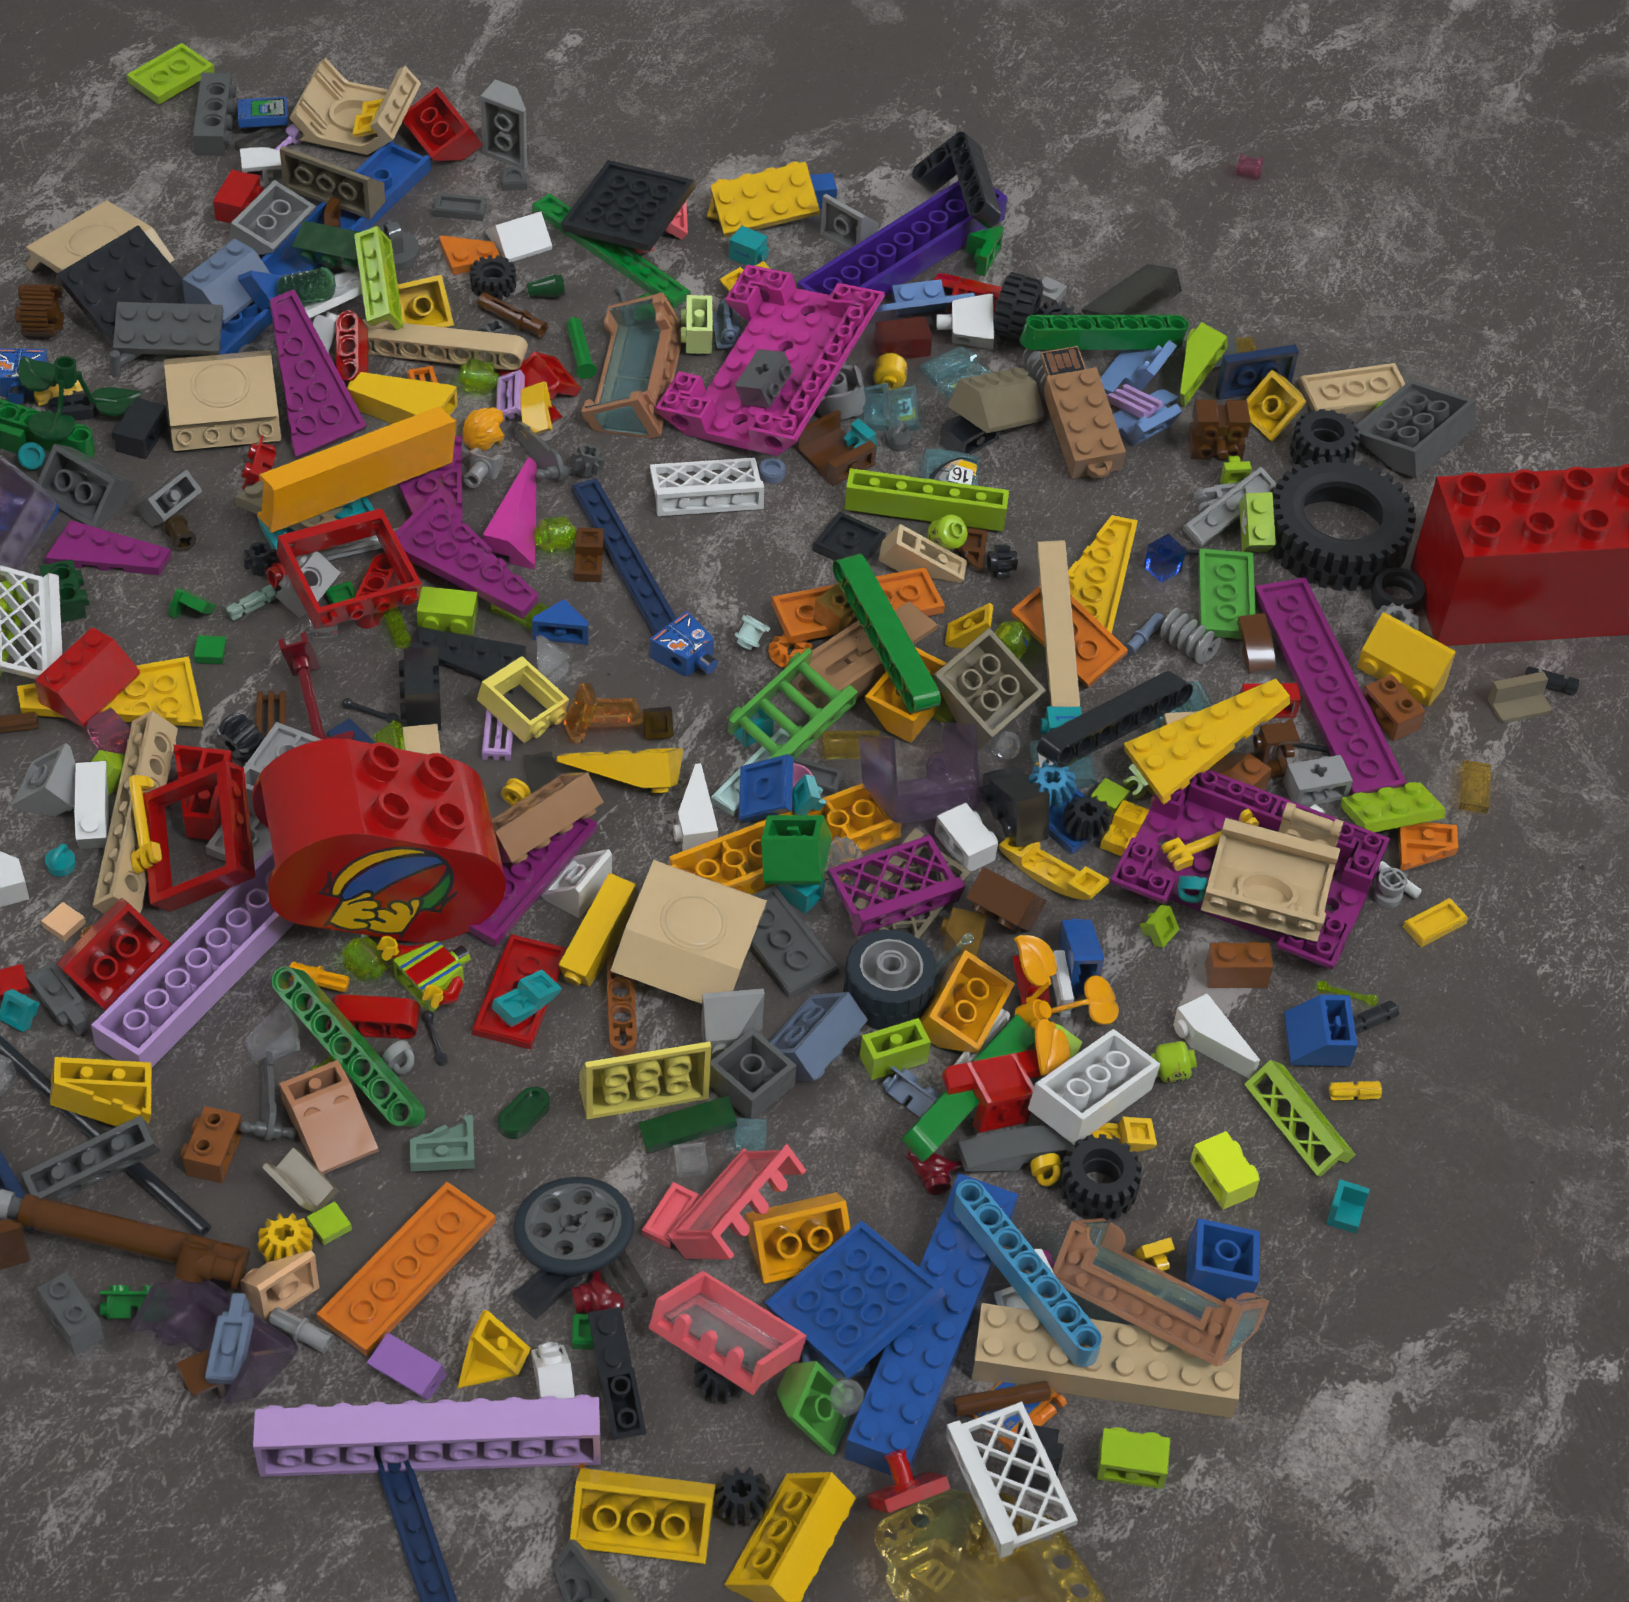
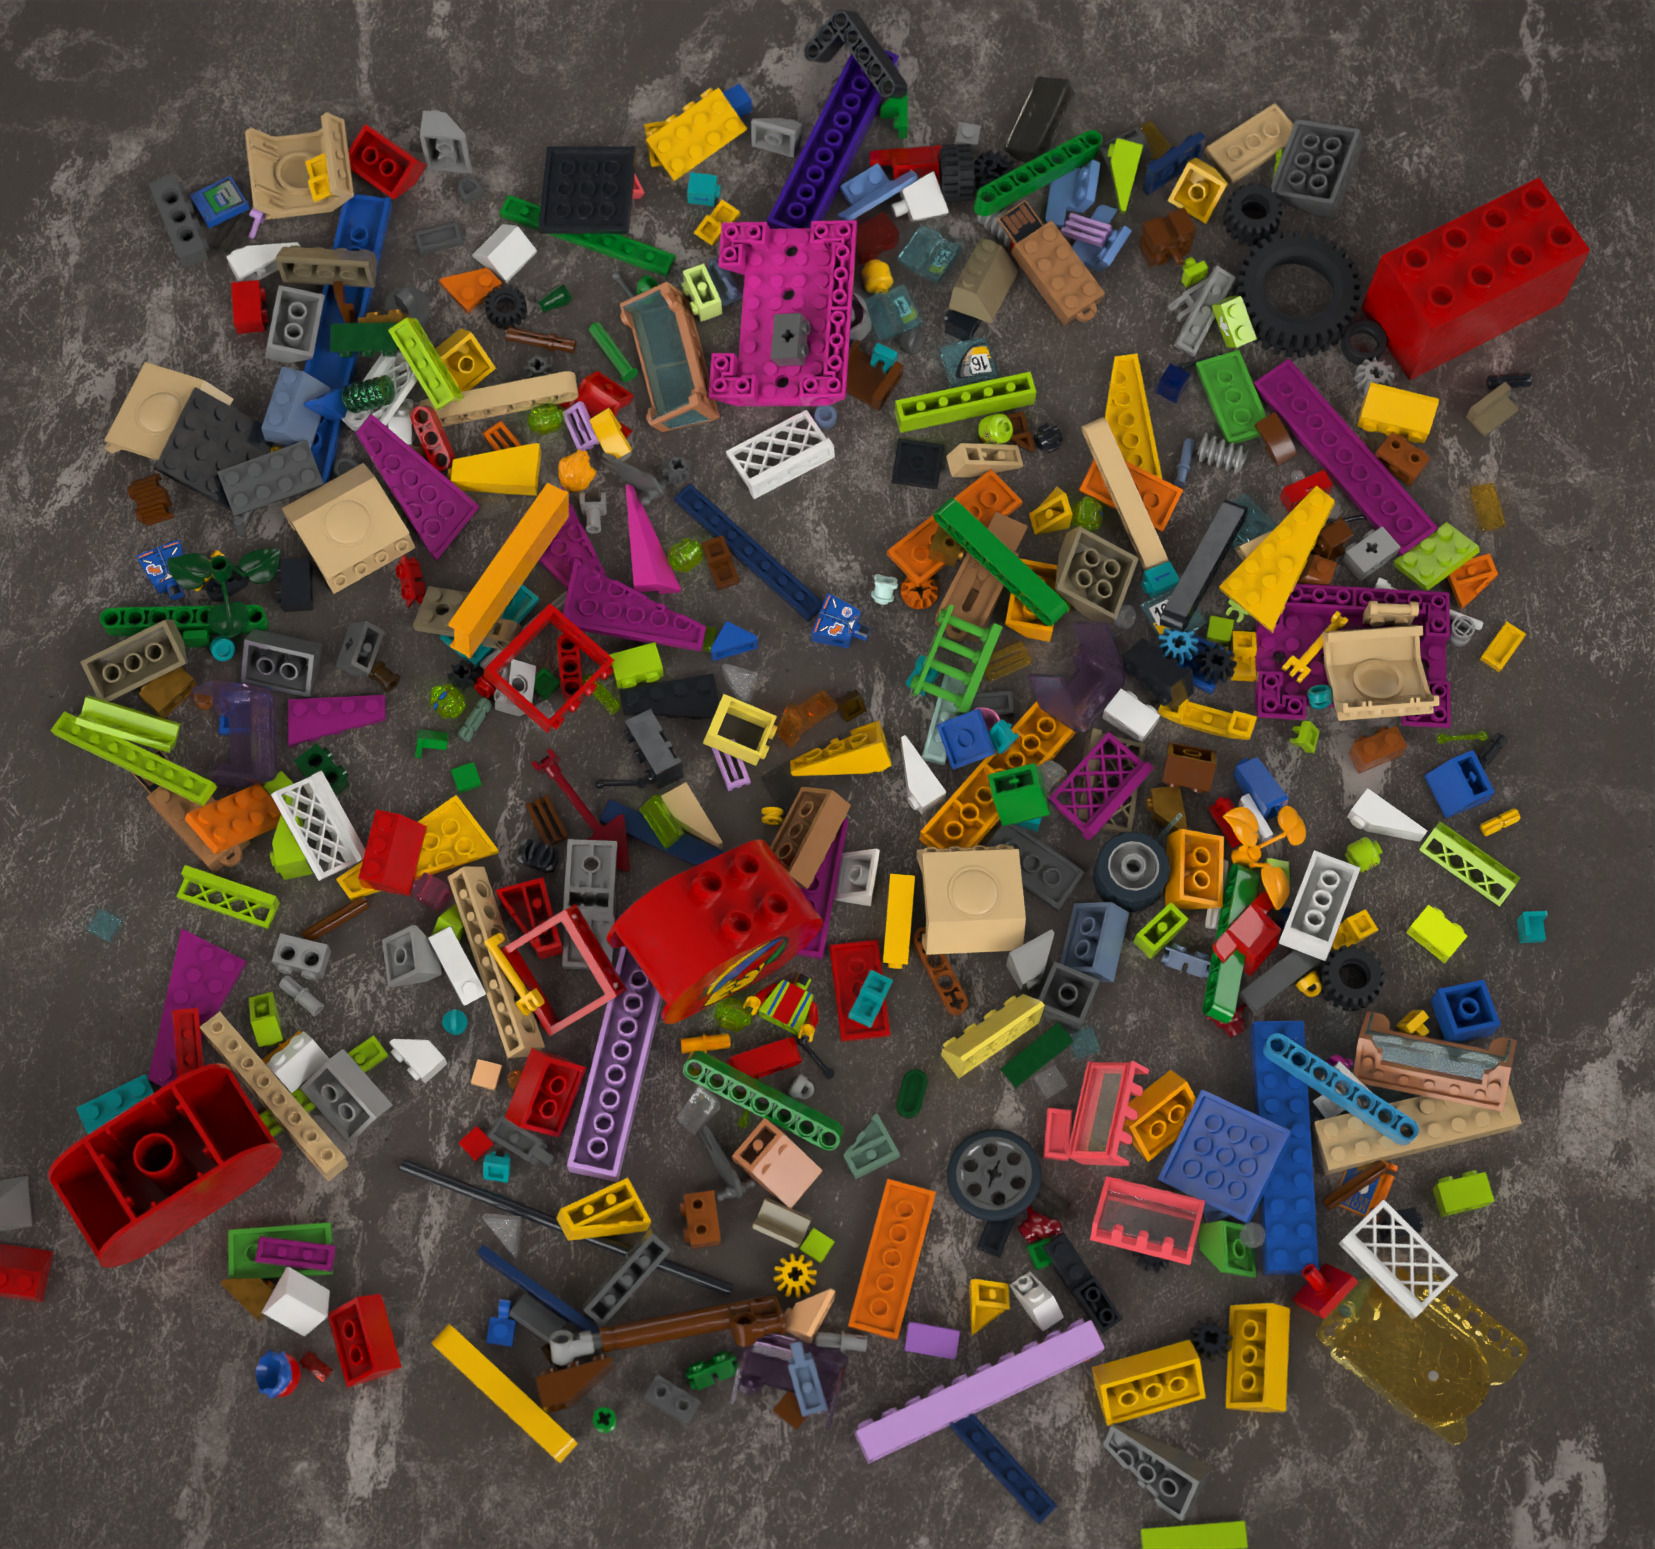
camera: 20 degrees left, 20 degrees up
(169, 73) = (115, 189): lime plate -> none
(230, 573) = (447, 701): none -> clear neon green head

